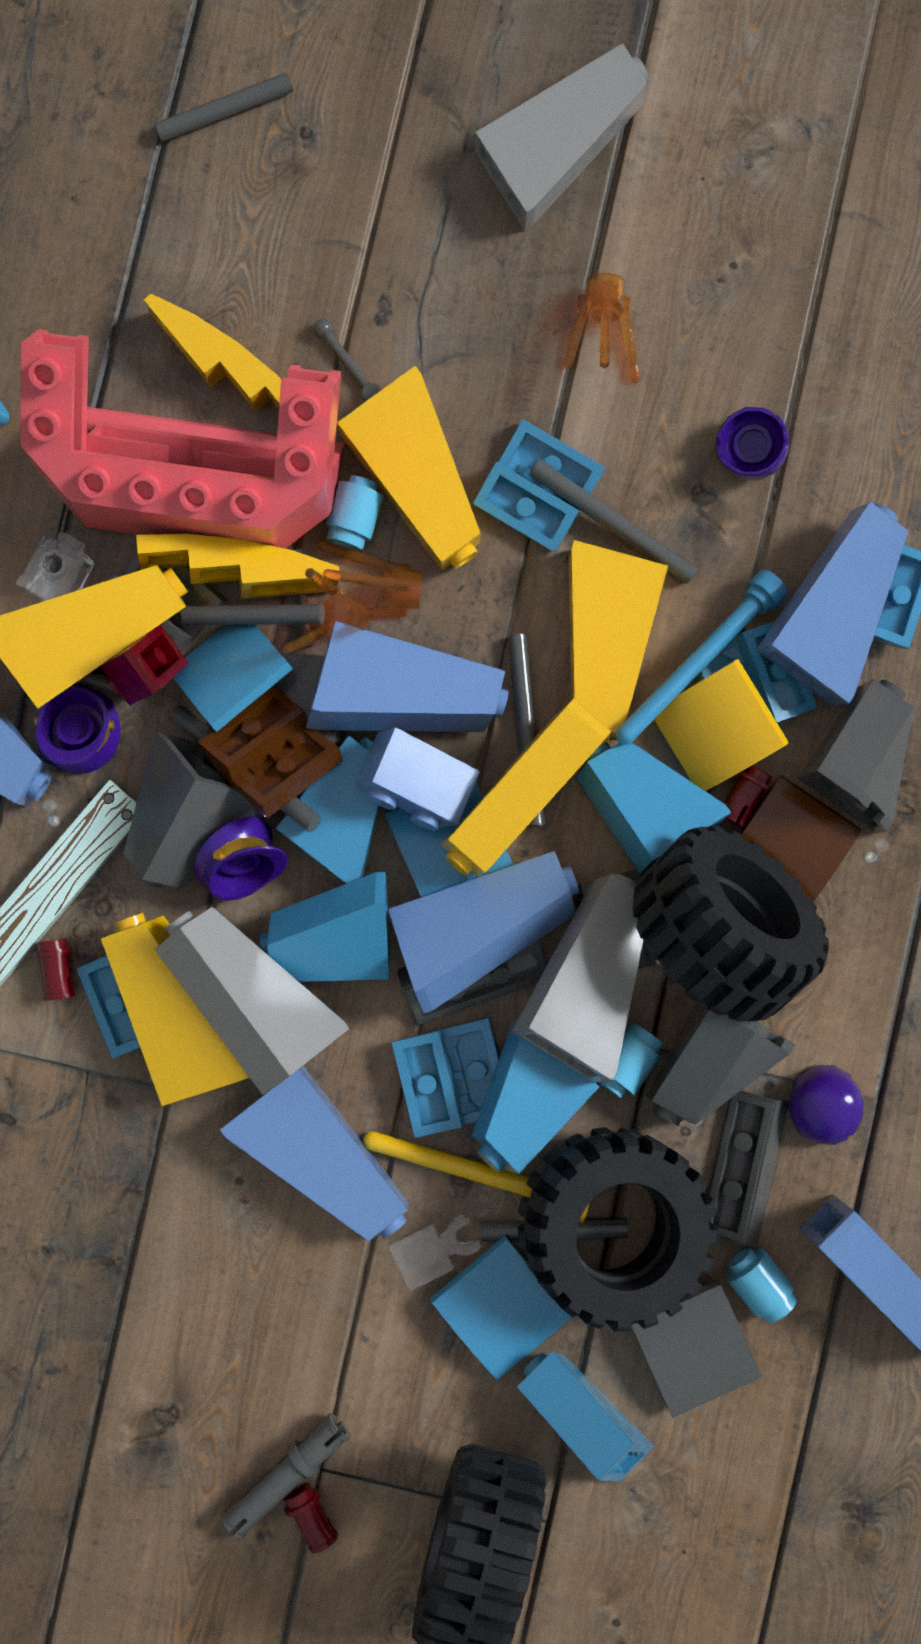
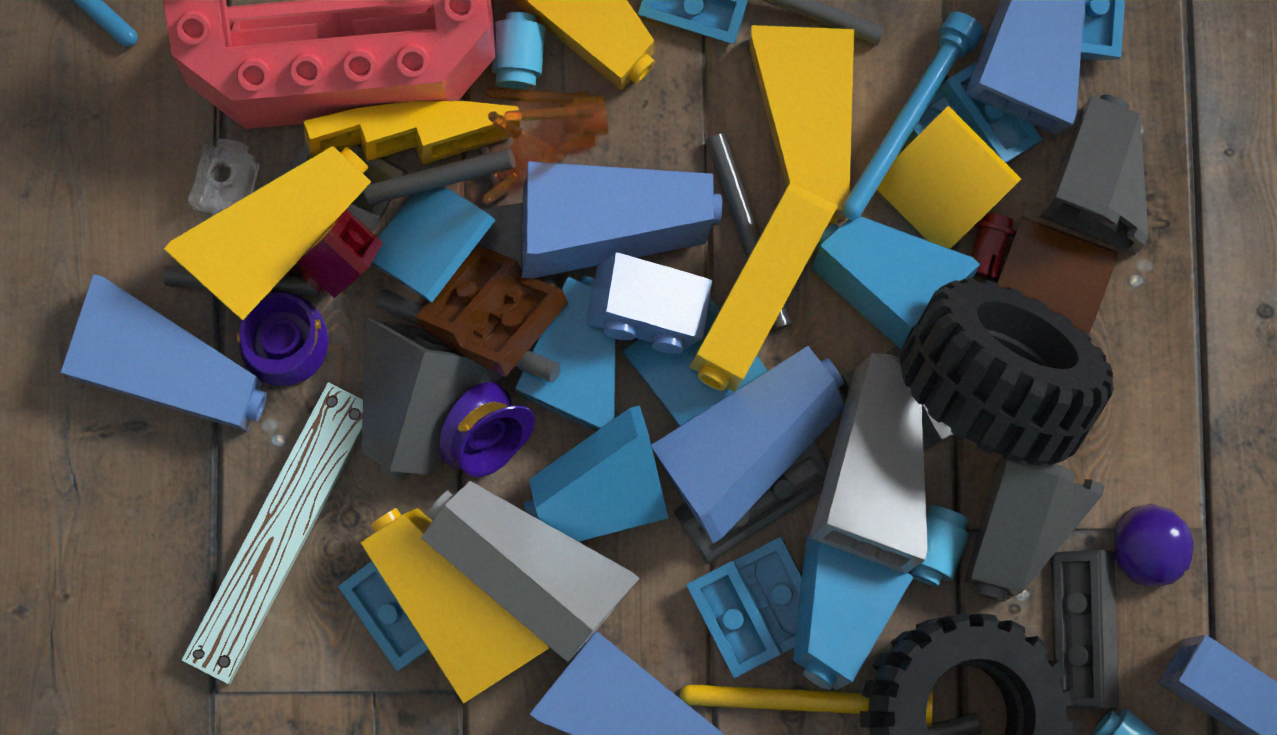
camera: 10 degrees left, 5 degrees down
(55, 969) = (316, 591): dark red pin -> none

